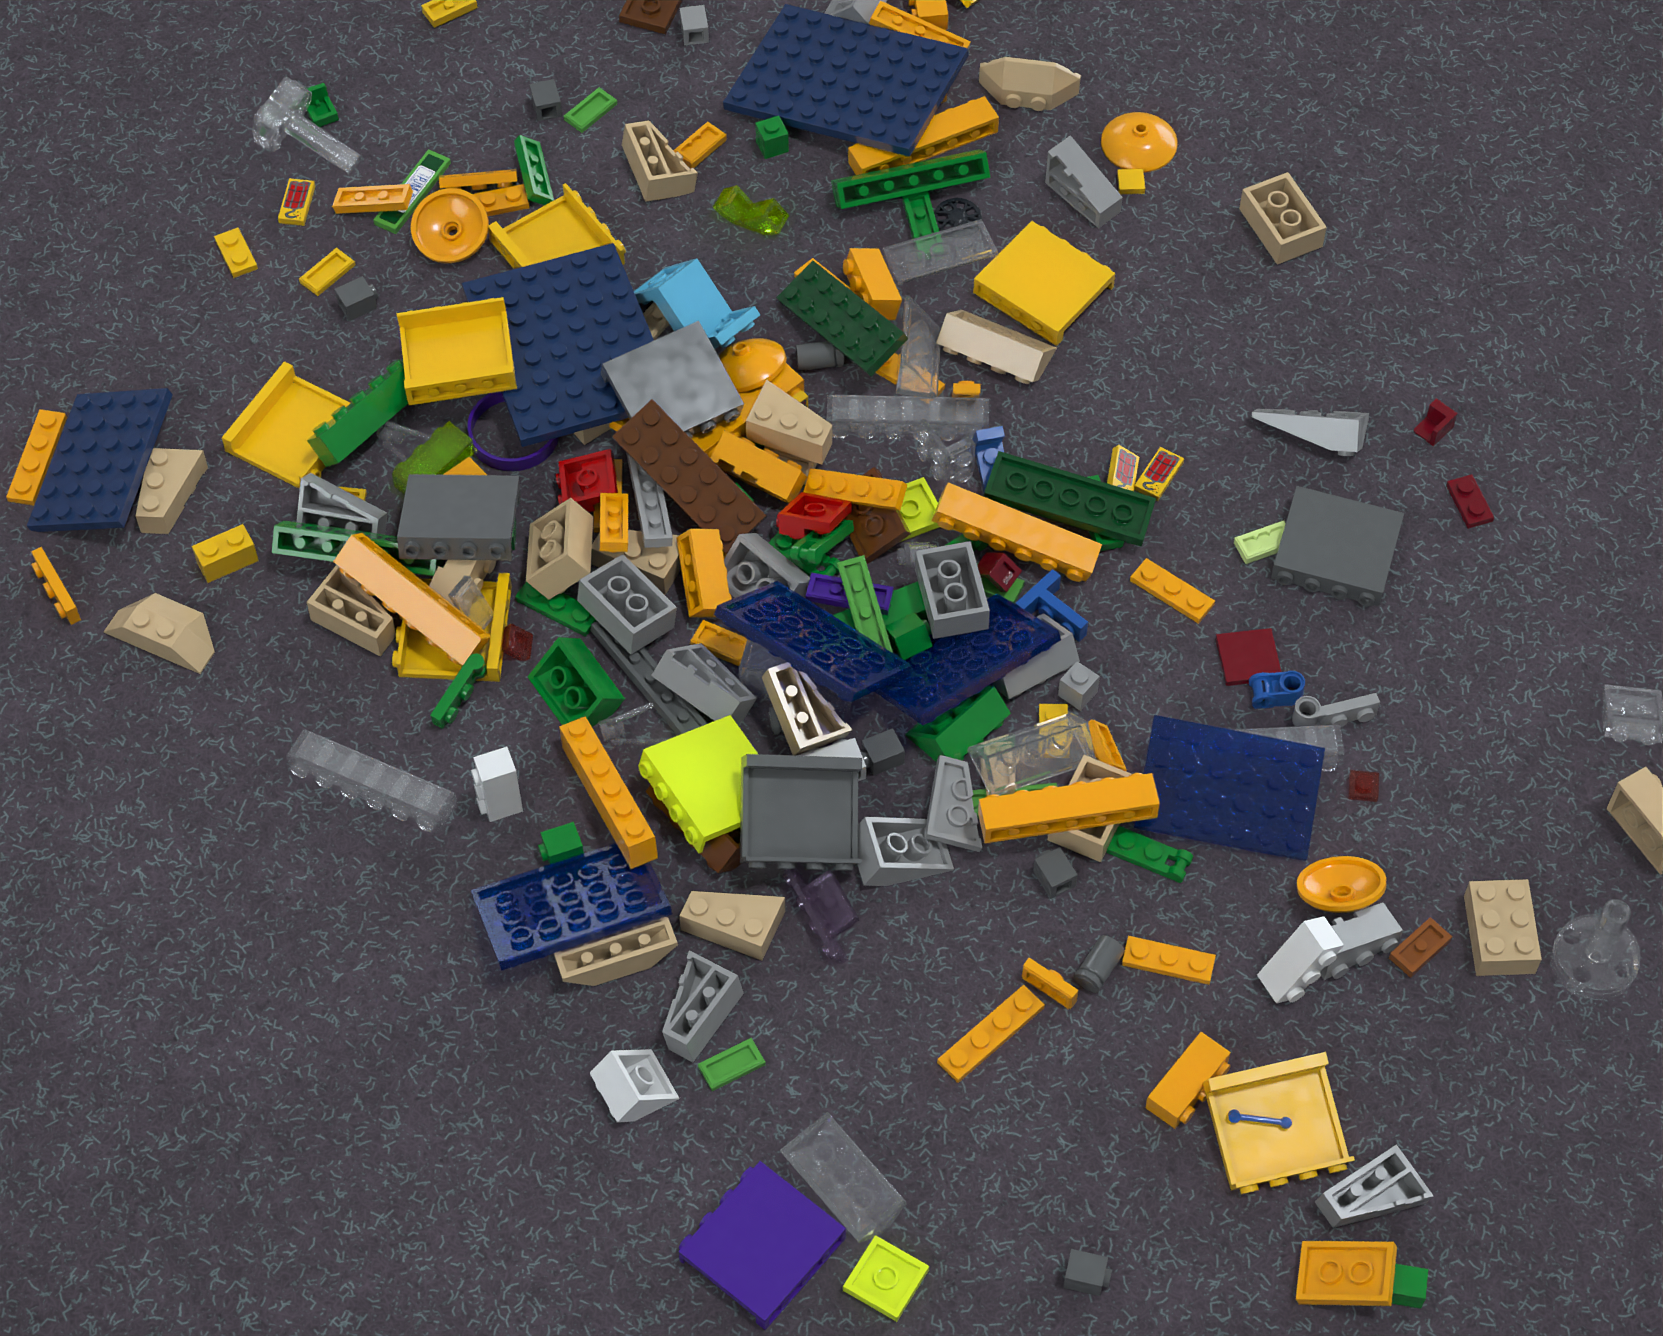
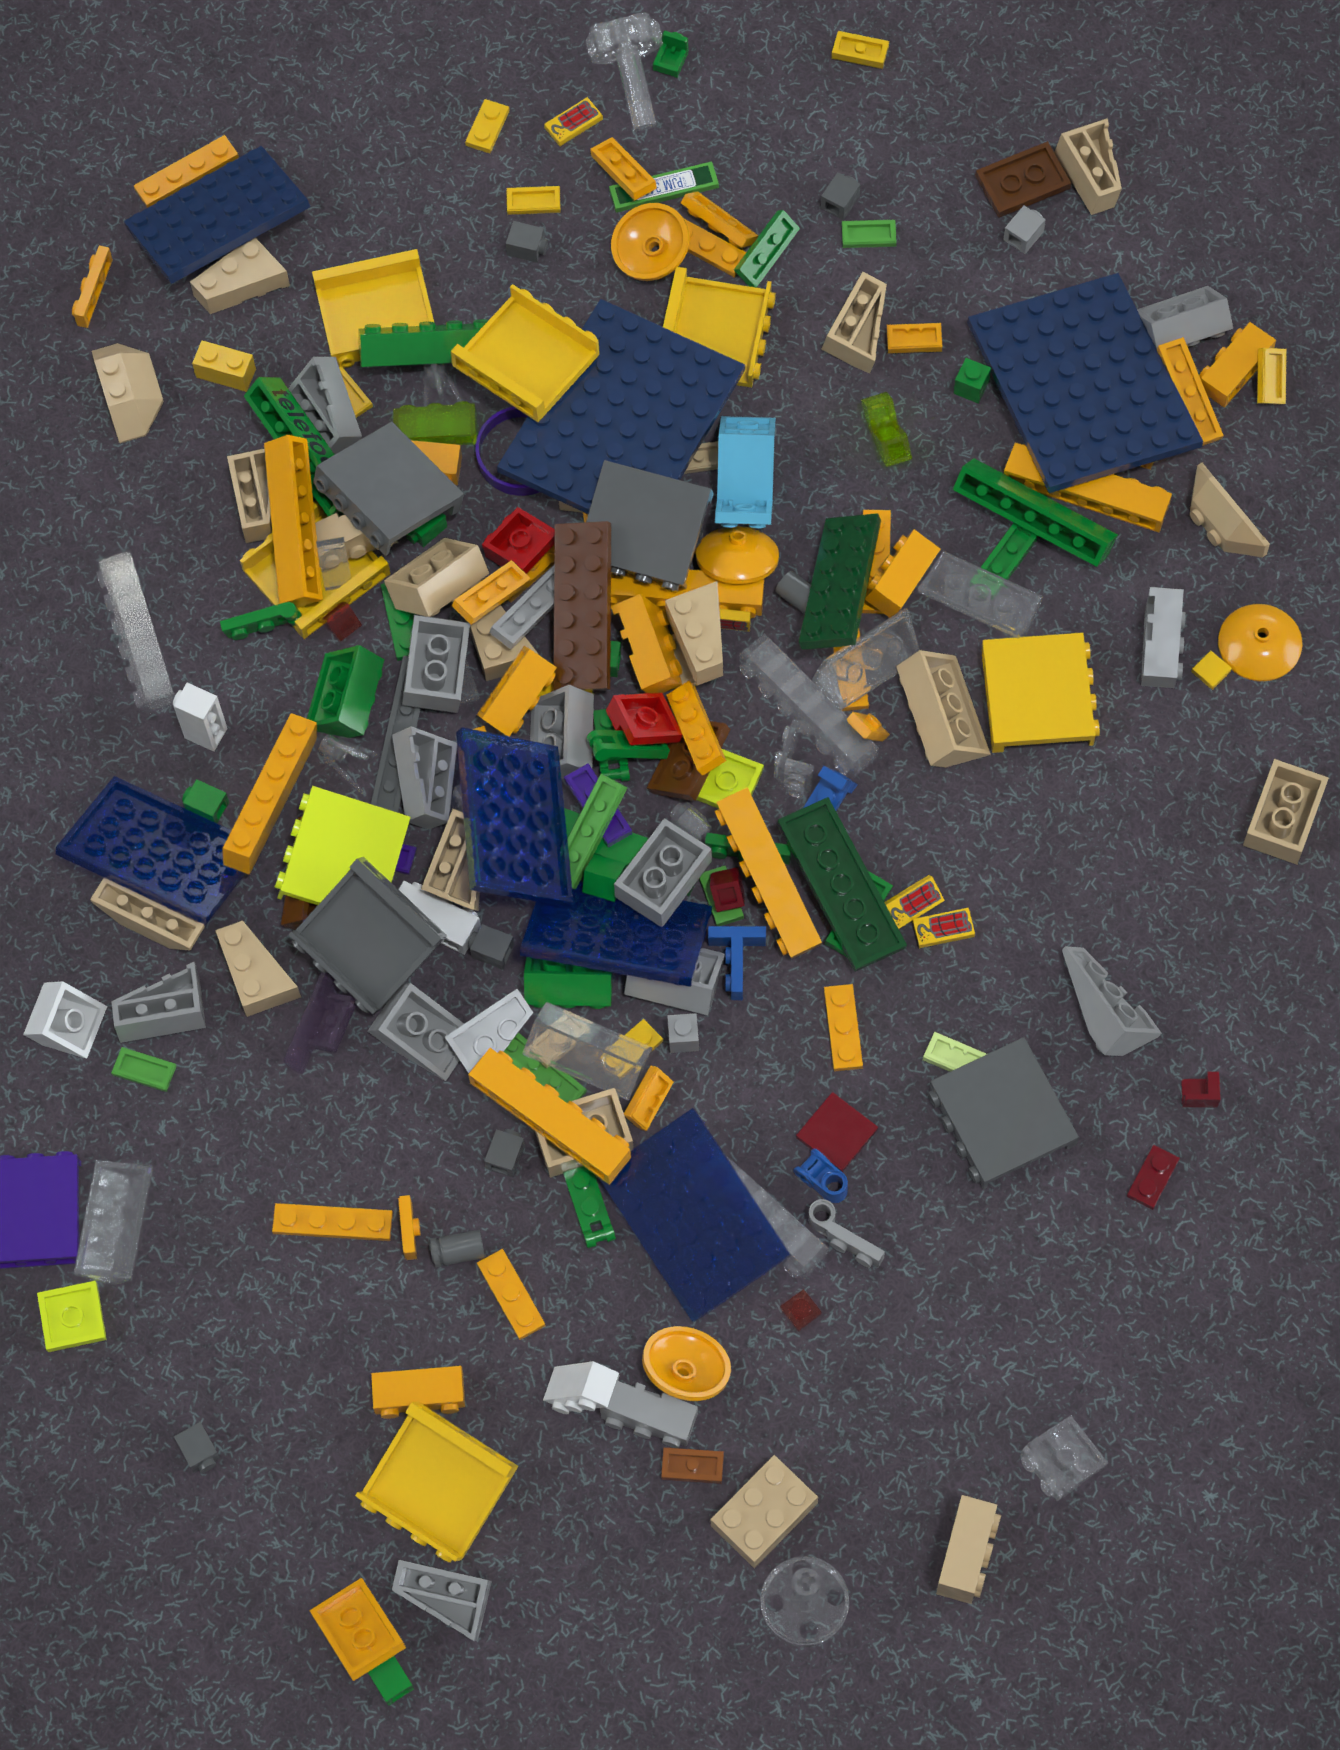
camera: 50 degrees right, 10 degrees up
(957, 215) = (1042, 576): black wheel -> none
(1235, 1116) = (412, 1447): blue hinge -> none

